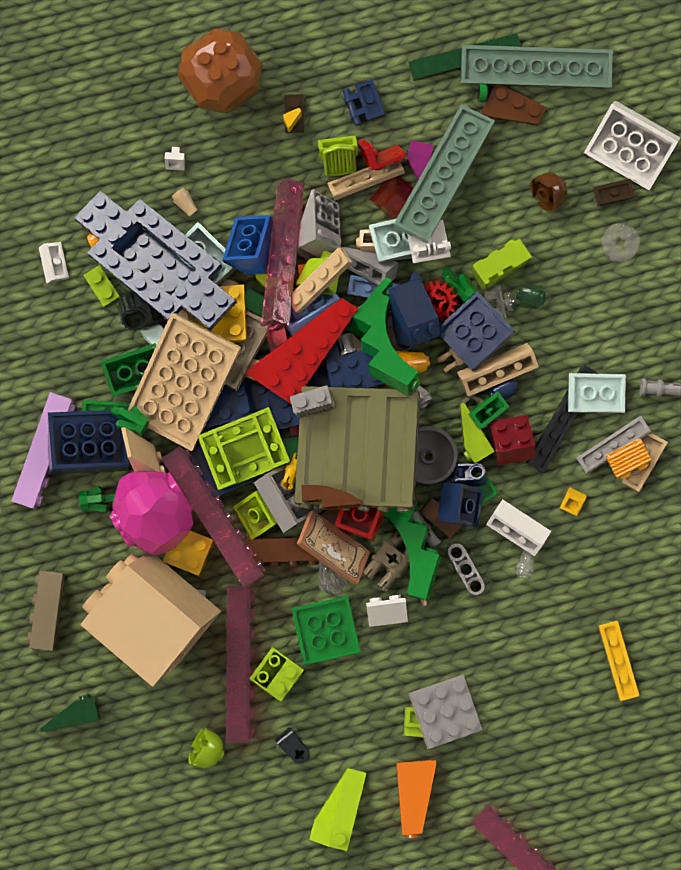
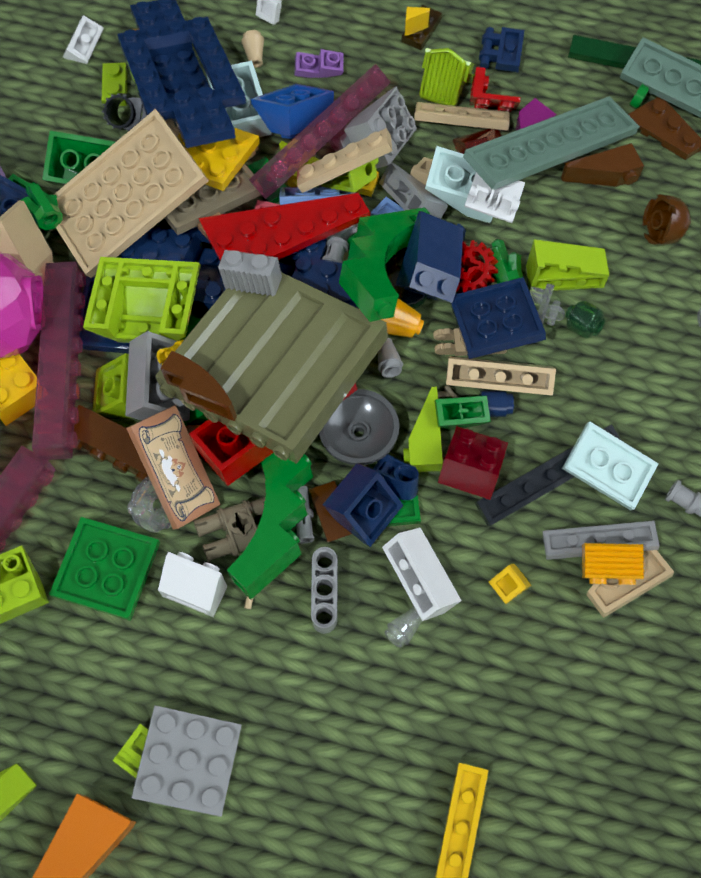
camera: 25 degrees right, 15 degrees down
(239, 188) = (318, 66): none -> medium lavender slope
(490, 166) = (605, 168): none -> reddish brown slope

